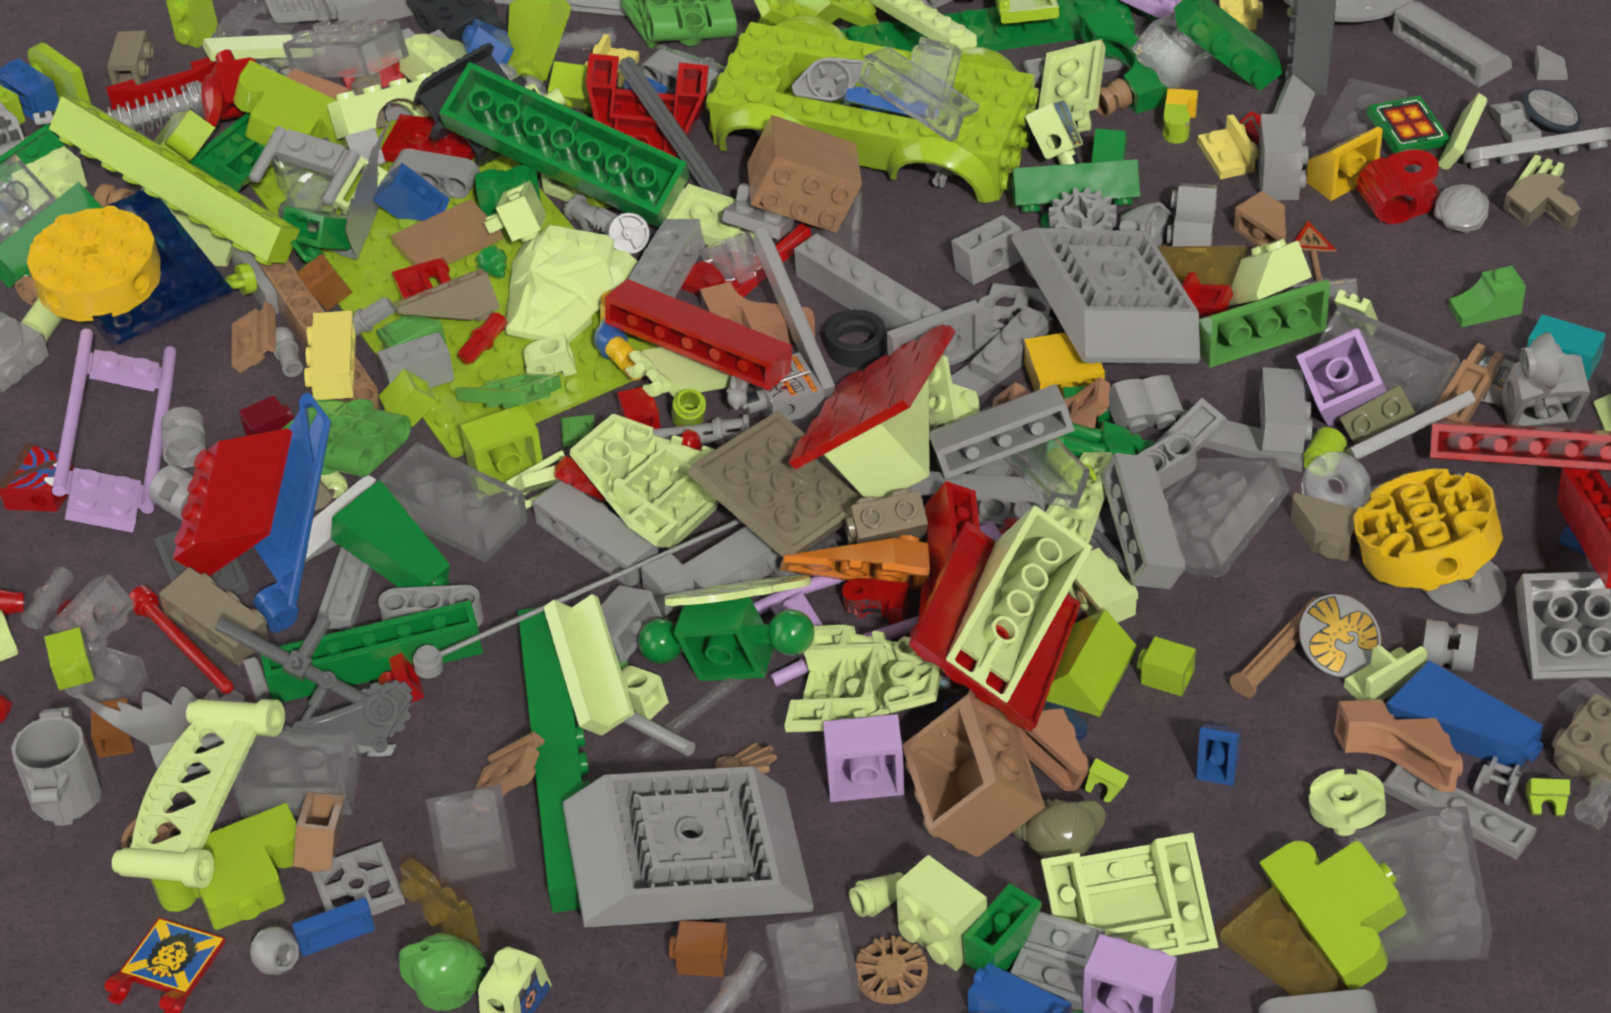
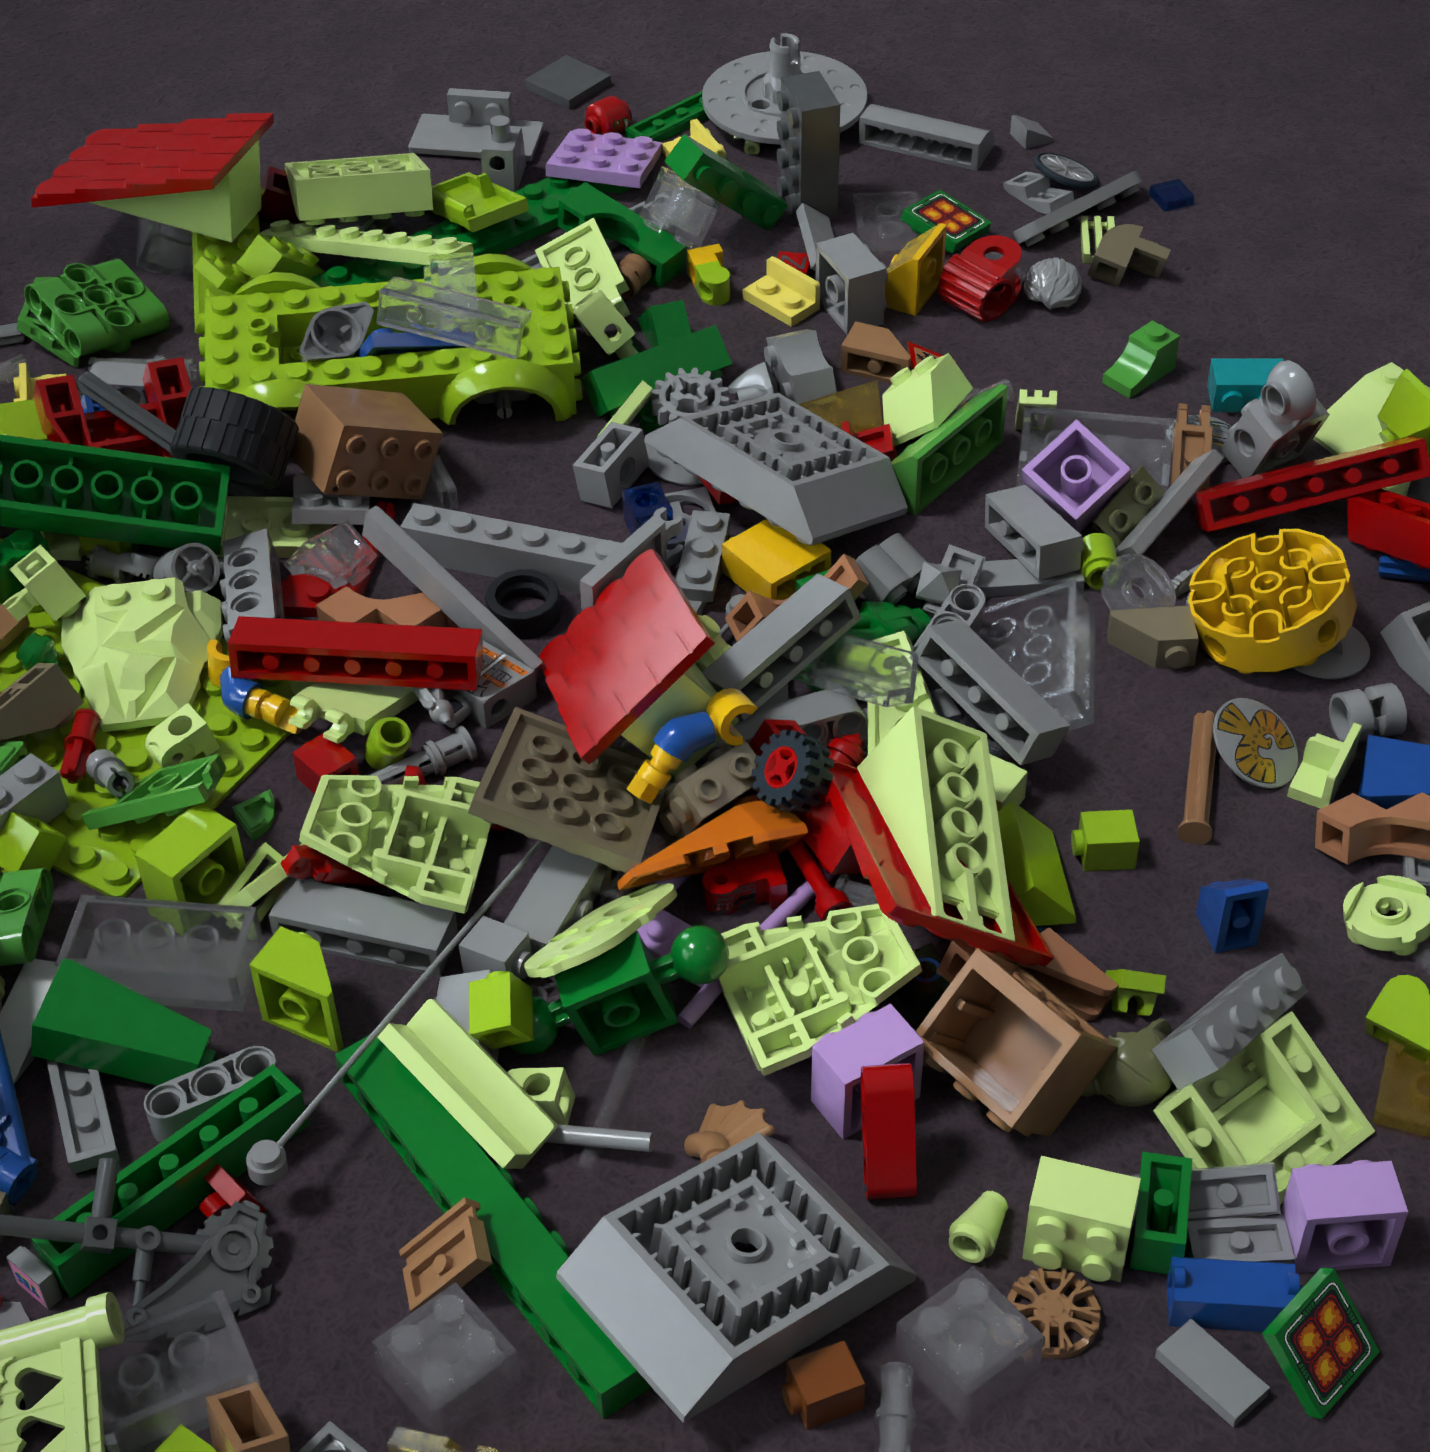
camera: 30 degrees left, 0 degrees up
(488, 364) = (109, 772): none -> light grey pin
(521, 556) = (296, 988): none -> lime slope
(635, 620) = (500, 1010): none -> lime brick
(703, 141) = (237, 433): none -> black tyre
(845, 801) = (888, 1131): none -> red beam
(877, 471) = (687, 735): none -> yellow piece
(935, 525) = (792, 772): none -> black wheel
(989, 284) = (642, 502): none -> clear blue brick
(1030, 208) = (632, 405): none -> yellowish green tile
(1145, 821) = (1229, 1021): none -> light grey brick
(1174, 421) = (937, 582): none -> light grey slope
(1462, 132) = (999, 207): yellowish green tile -> none

